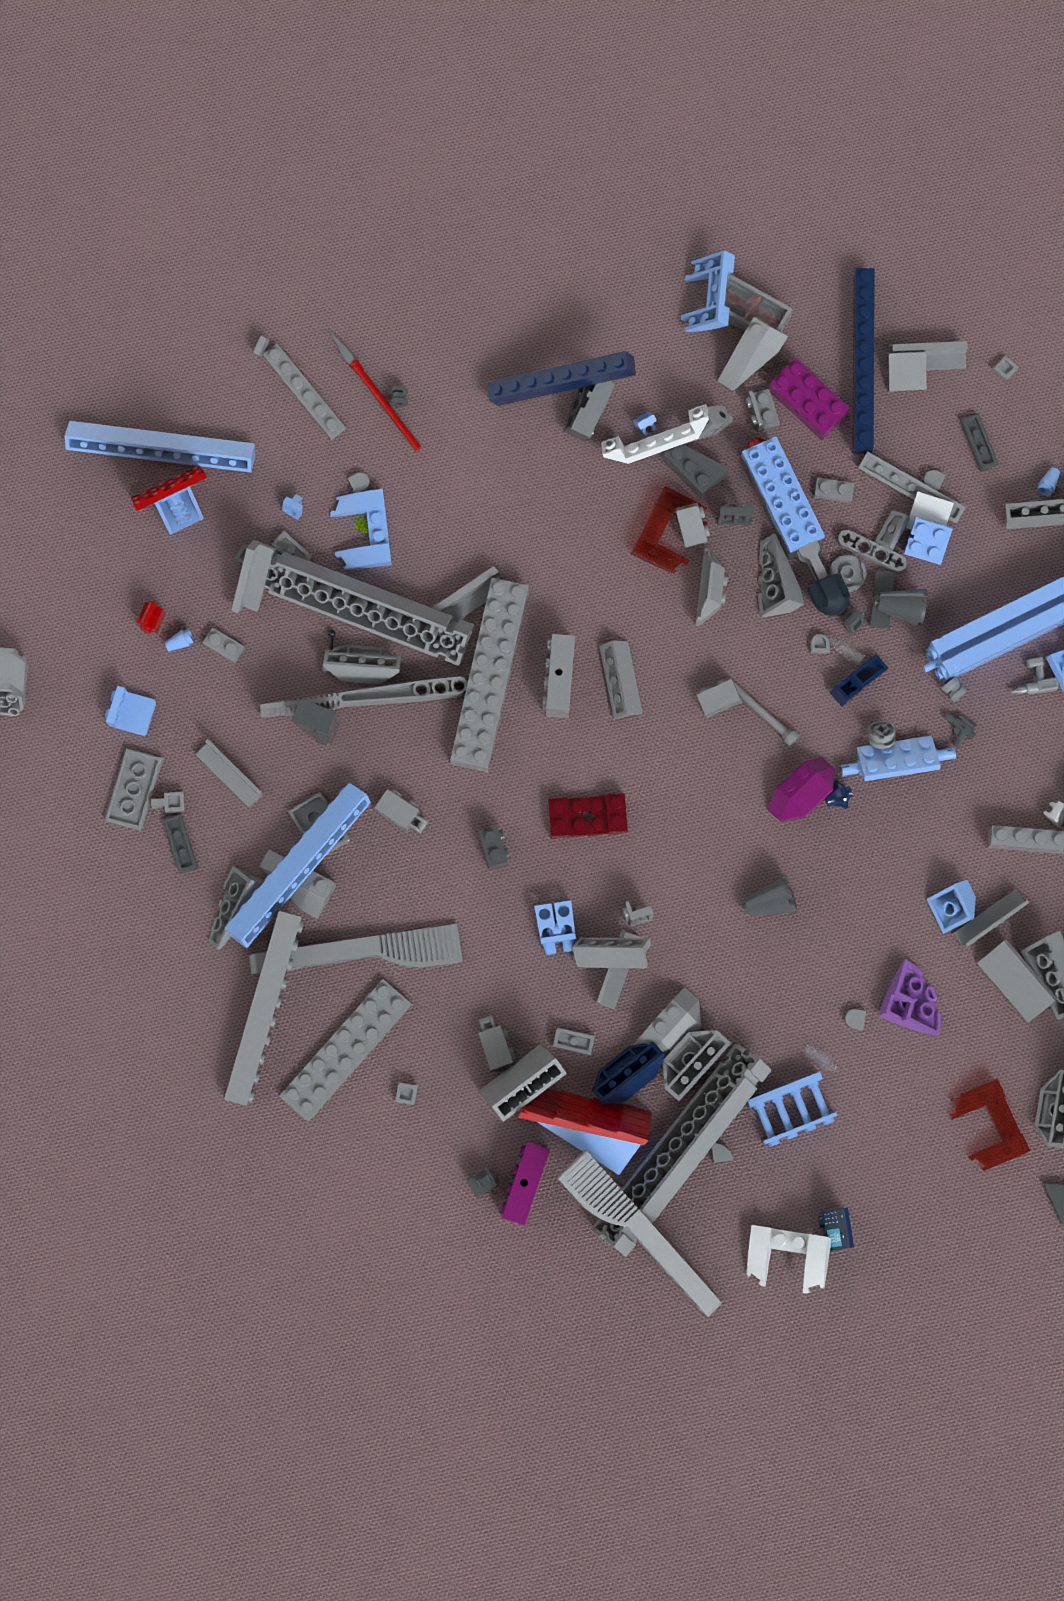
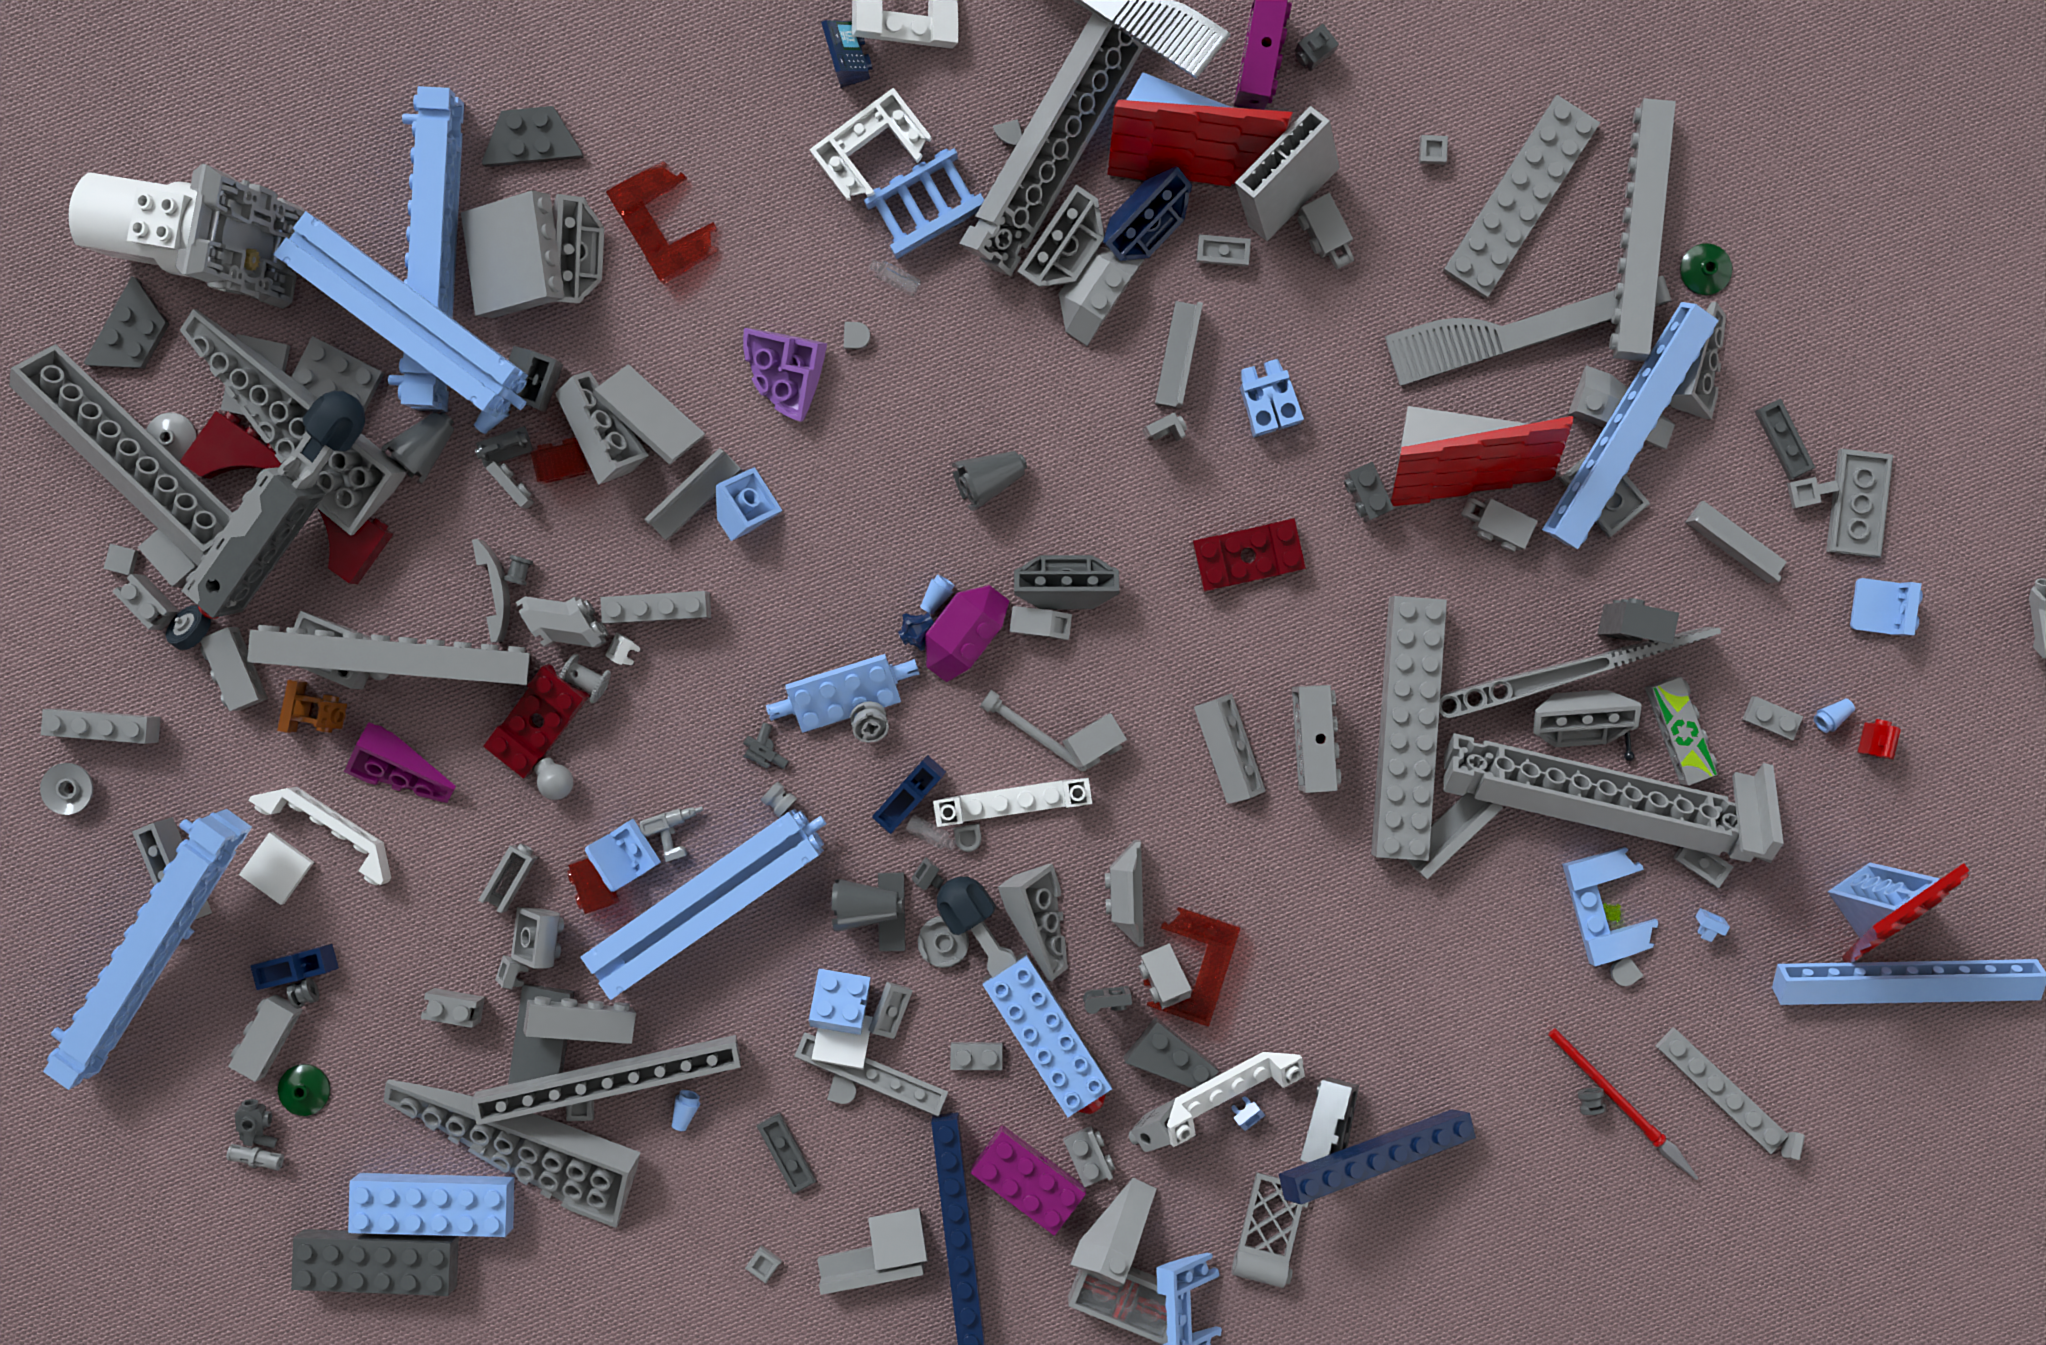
camera: 170 degrees right, 10 degrees up
(225, 982) = (1694, 271): none -> dark green dish
(292, 645) = (1681, 730): none -> light grey brick
(426, 862) = (1464, 454): none -> red piece
(611, 952) = (1193, 368): light grey panel -> none
(649, 318) = (1261, 1264): none -> light grey piece
(724, 815) = (1066, 582): none -> dark grey wedge
(747, 788) = (1040, 622): none -> light grey slope
(785, 664) = (1012, 801): none -> white slope
(820, 820) = (937, 593): none -> light blue cone
(854, 1157) = (884, 113): none -> white wedge
(870, 554) = (915, 973): light grey beam -> none

